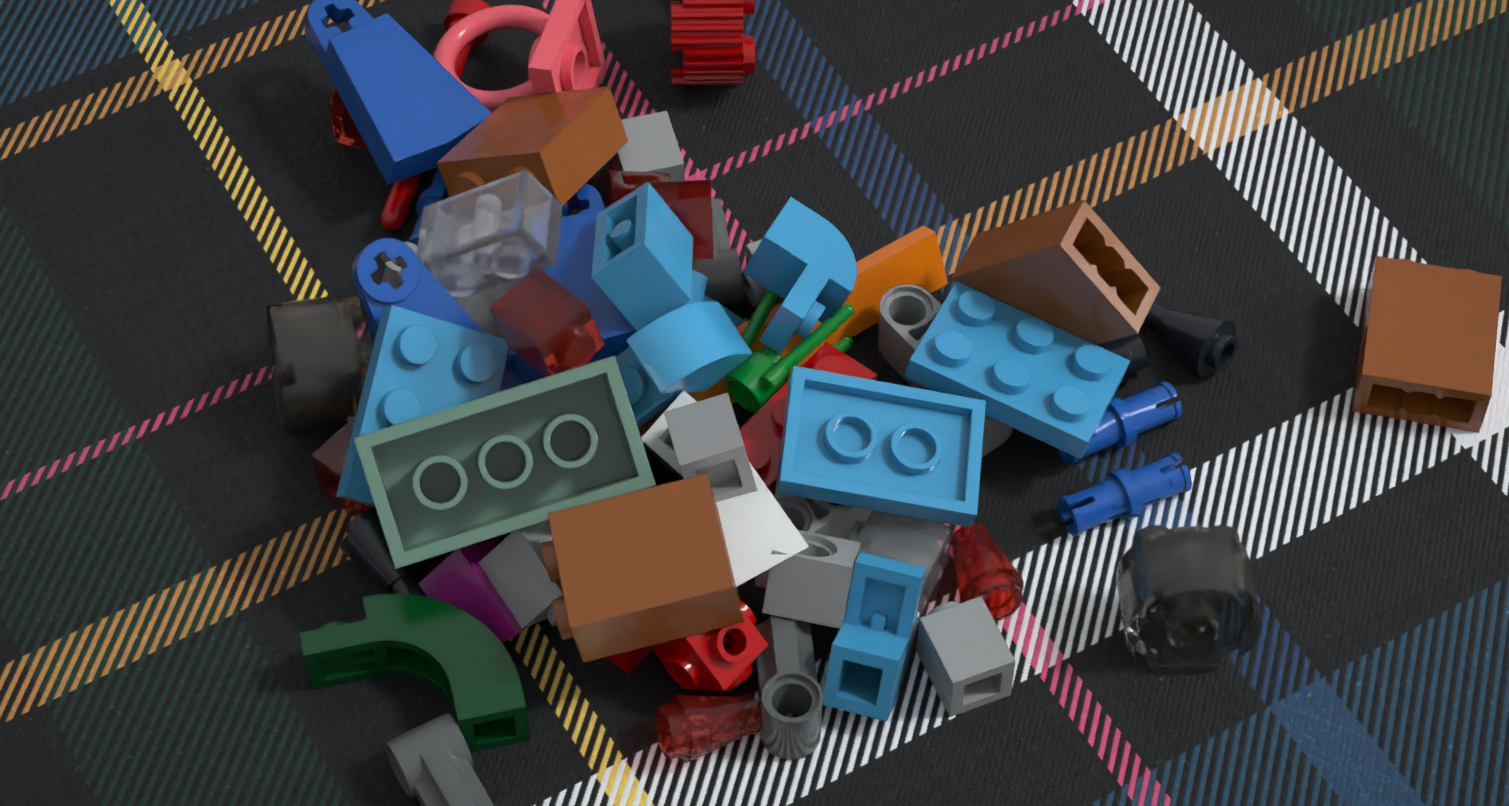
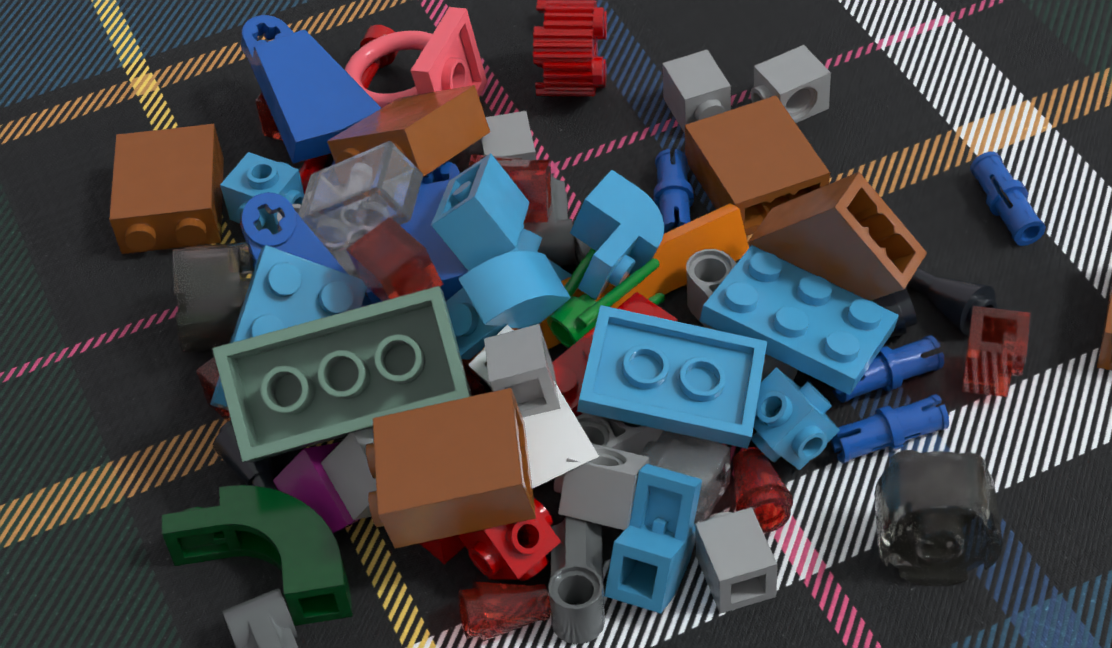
camera: 10 degrees right, 5 degrees down
(231, 219) = (167, 189): none -> dark orange brick
(351, 217) = (258, 176): none -> dark azure brick
(850, 207) = (673, 192): none -> blue pin
(867, 78) = (695, 88): none -> light grey brick
(946, 169) = (753, 159): none -> dark orange brick
(980, 70) = (796, 80): none -> light grey brick
(1017, 491) = (791, 420): none -> dark azure brick
(1240, 398) = (995, 350): none -> clear red brick
(1259, 231) = (1020, 218): none -> blue pin

